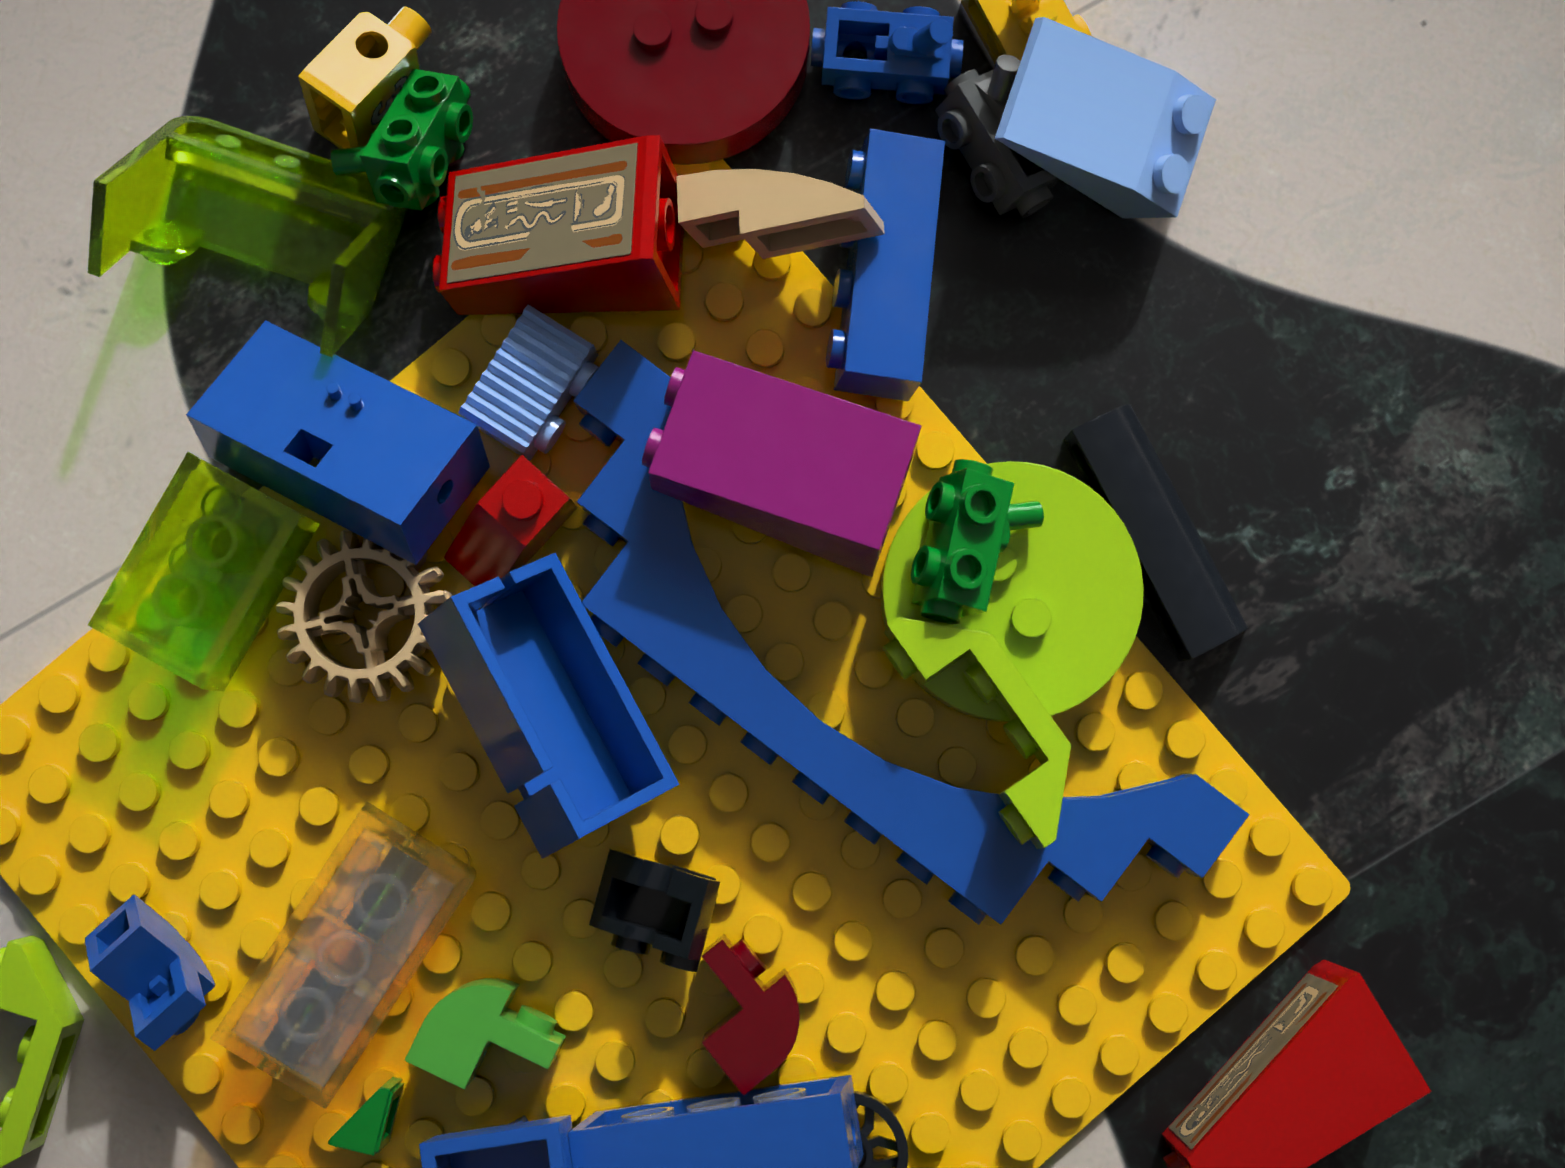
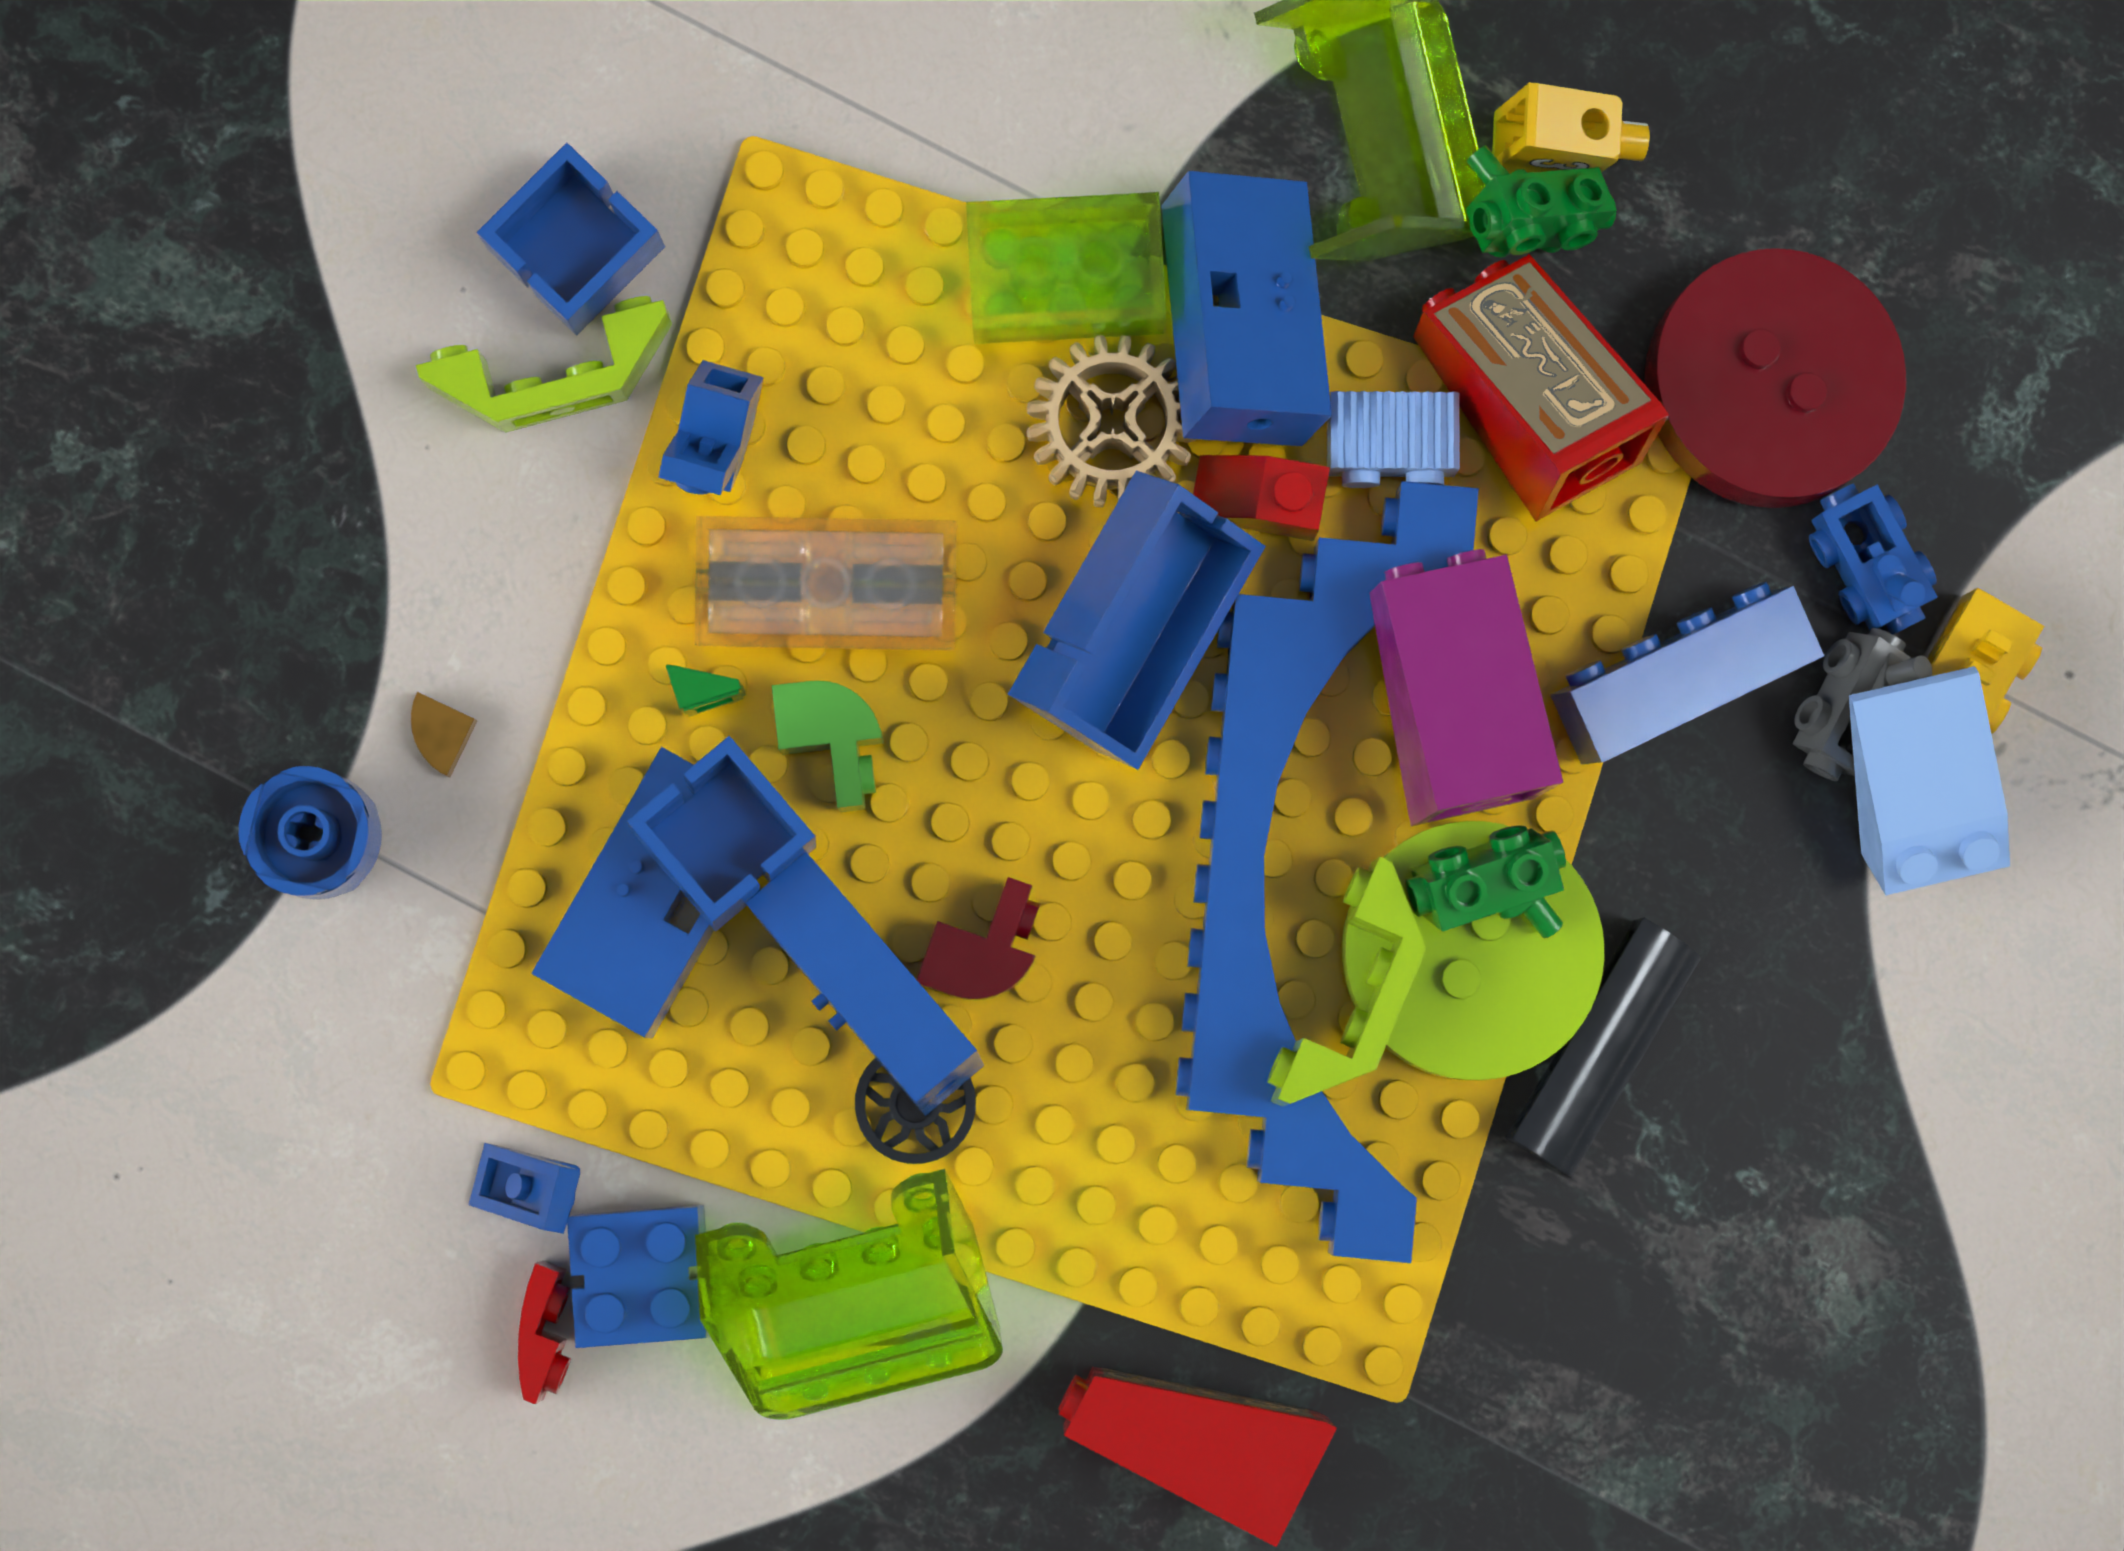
camera: 55 degrees right, 0 degrees up
(656, 907) = (1023, 813): black cylinder -> none
(772, 211) = (1667, 546): tan slope -> none

